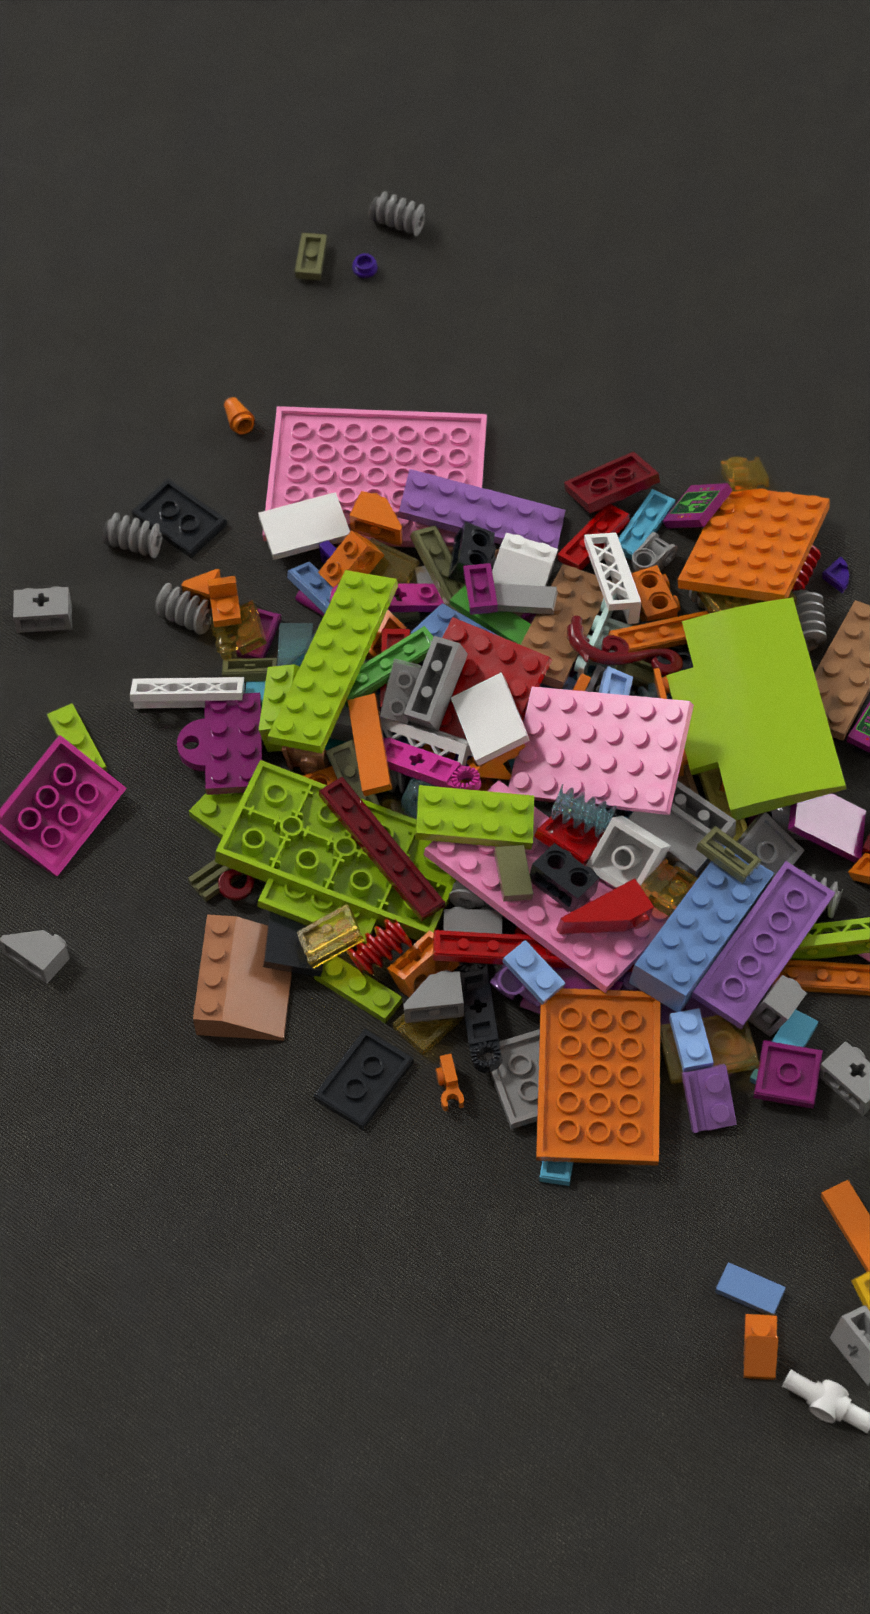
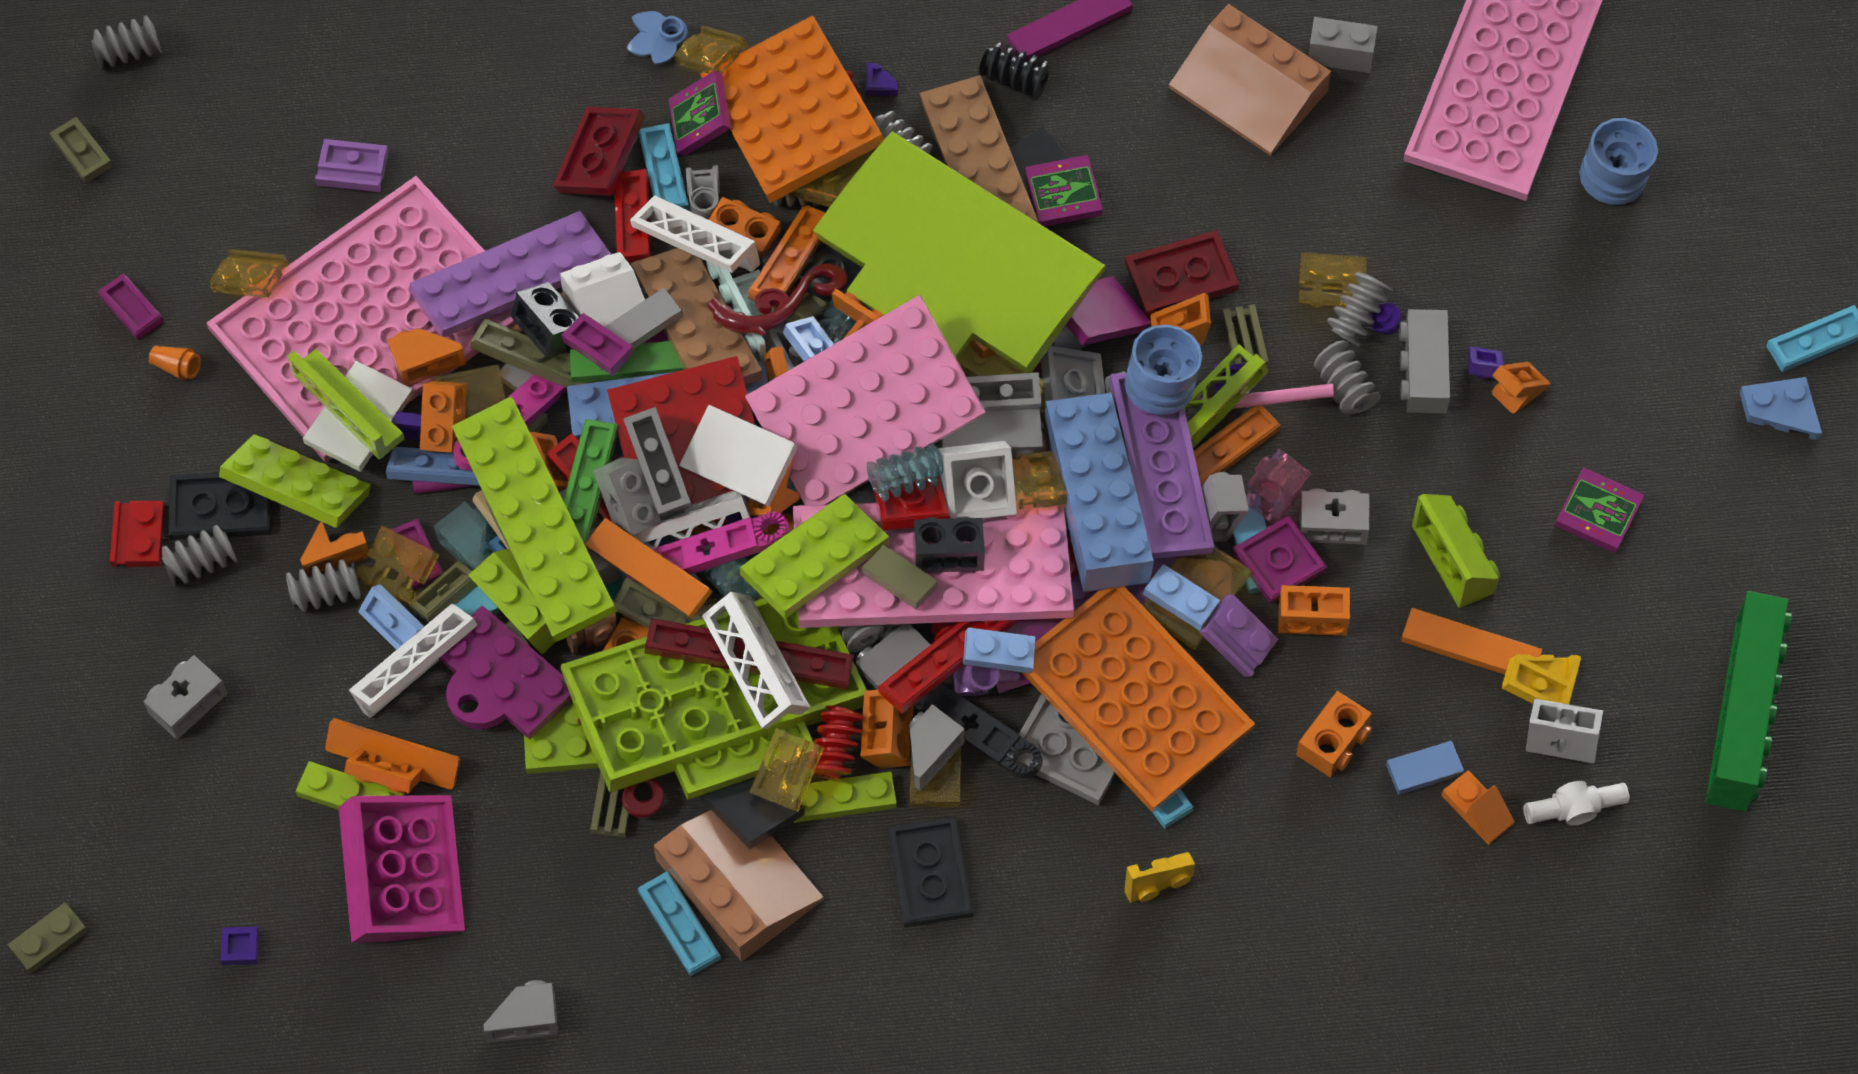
camera: 45 degrees left, 5 degrees up
(116, 740) = (390, 759): none -> orange bracket
(117, 494) = (137, 534): none -> red plate
(181, 980) = (679, 923): none -> medium azure tile
(203, 656) = (389, 616): none -> light blue plate
(224, 601) = (362, 546): orange slope -> none
(231, 535) = (294, 480): none -> lime plate
(247, 366) = (130, 306): none -> magenta tile
(301, 509) = (345, 402): none -> lime fence
(330, 396) = (248, 273): none -> clear yellow plate
(364, 266) = (143, 120): dark purple plate -> none
(383, 851) = (766, 656): none -> white fence
(447, 1076) = (1005, 806): orange plate -> none
(457, 381) = (352, 165): none -> medium lavender plate
(498, 1203) = (1165, 873): none -> yellow wing
(612, 912) = (1021, 537): red slope -> none
(706, 1206) = (1328, 731): none -> orange brick
(723, 443) = (654, 36): none -> medium blue plate
(726, 856) = (1065, 412): olive tile -> none
(775, 1124) = (1314, 610): none -> orange brick
(816, 881) = (1163, 369): none -> medium blue wheel
(828, 1022) = (1276, 486): none -> clear pink brick

